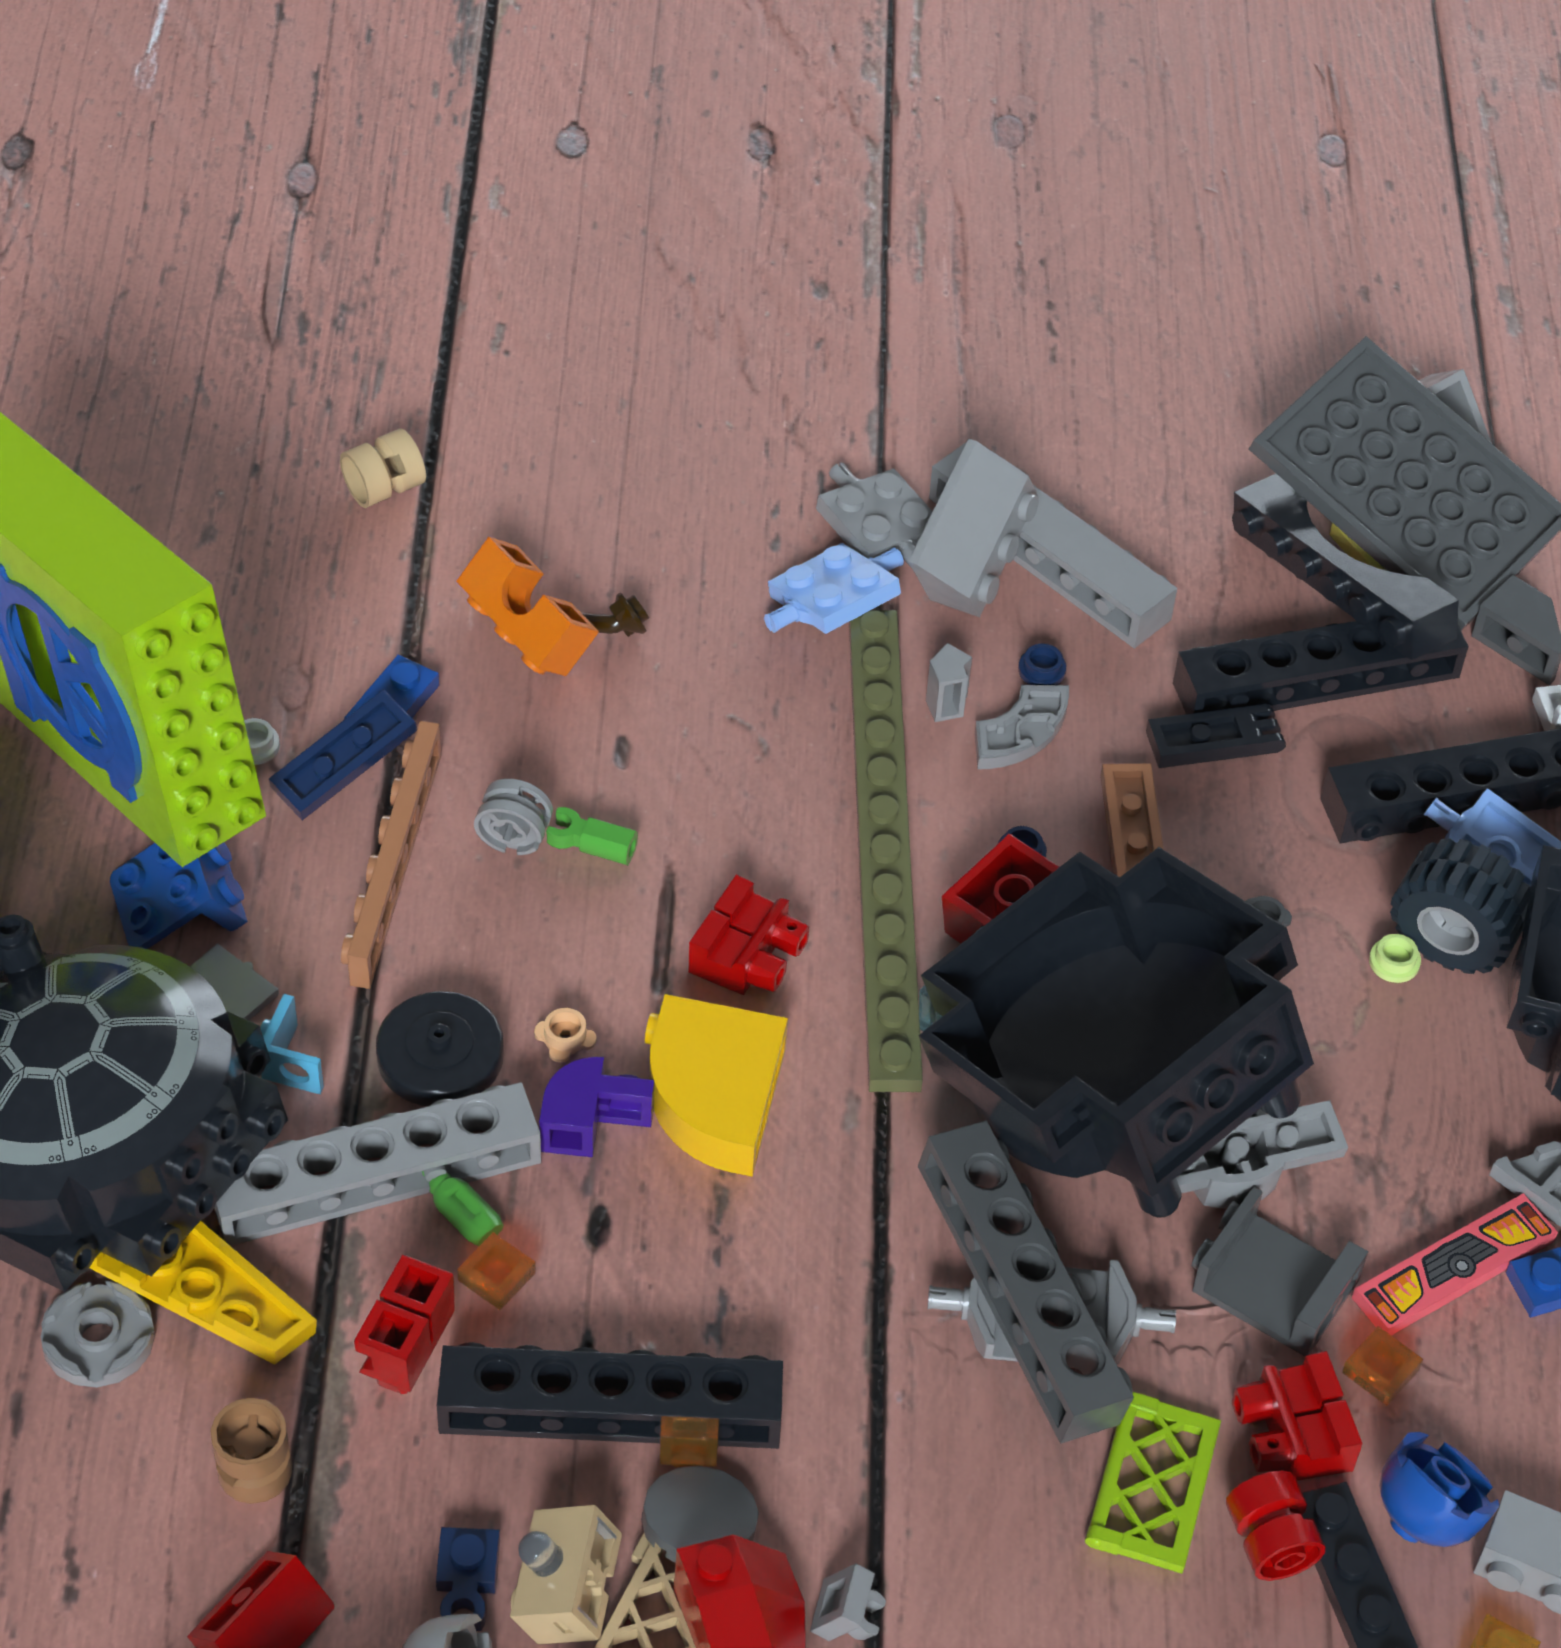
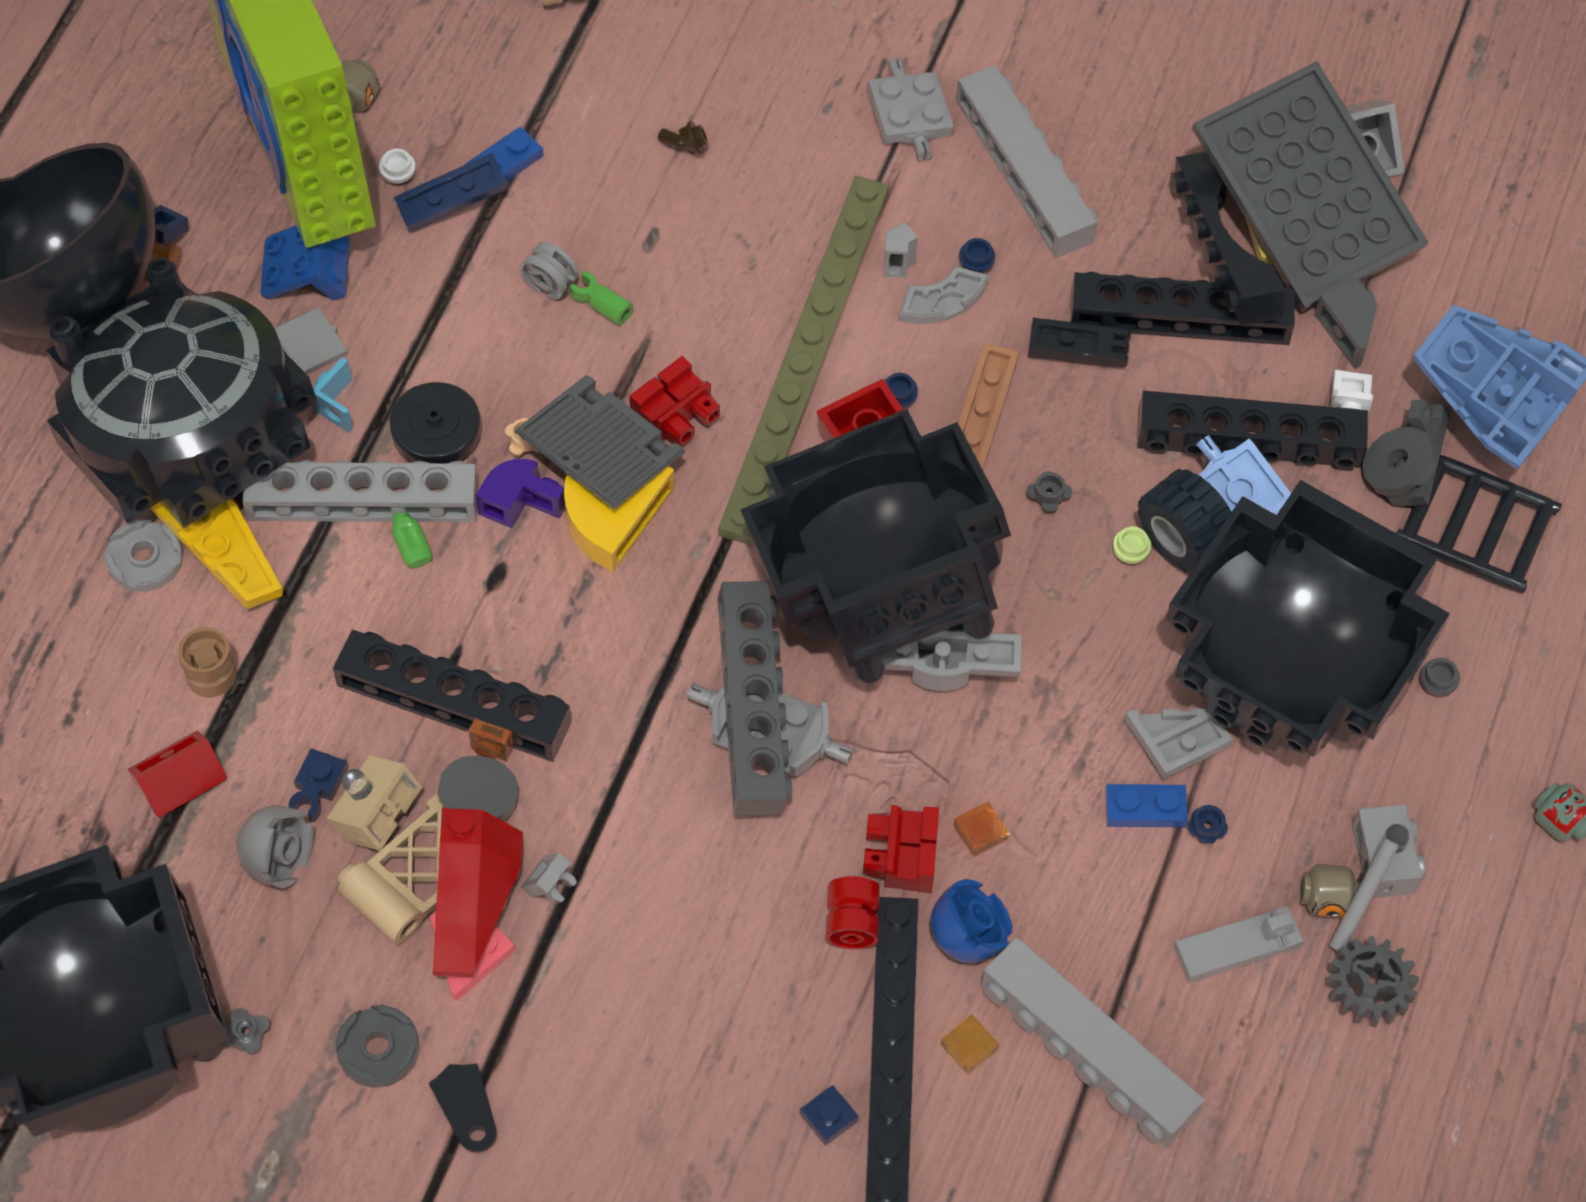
camera: 20 degrees right, 10 degrees up
(388, 868) = (452, 283): nougat plate -> none
(406, 1324) = (334, 608): red hips -> none
(496, 1271) = (412, 588): clear orange plate -> none
(501, 587) = (626, 136): orange arch -> none
(677, 1010) = (600, 441): none -> dark grey window
(833, 588) = (849, 155): light blue plate -> none
(973, 530) = (960, 138): light grey slope -> none
(1168, 1421) = (803, 887): lime window -> none
(1274, 1277) = (937, 744): dark grey panel -> none
(1454, 1265) = (1068, 775): tile -> none

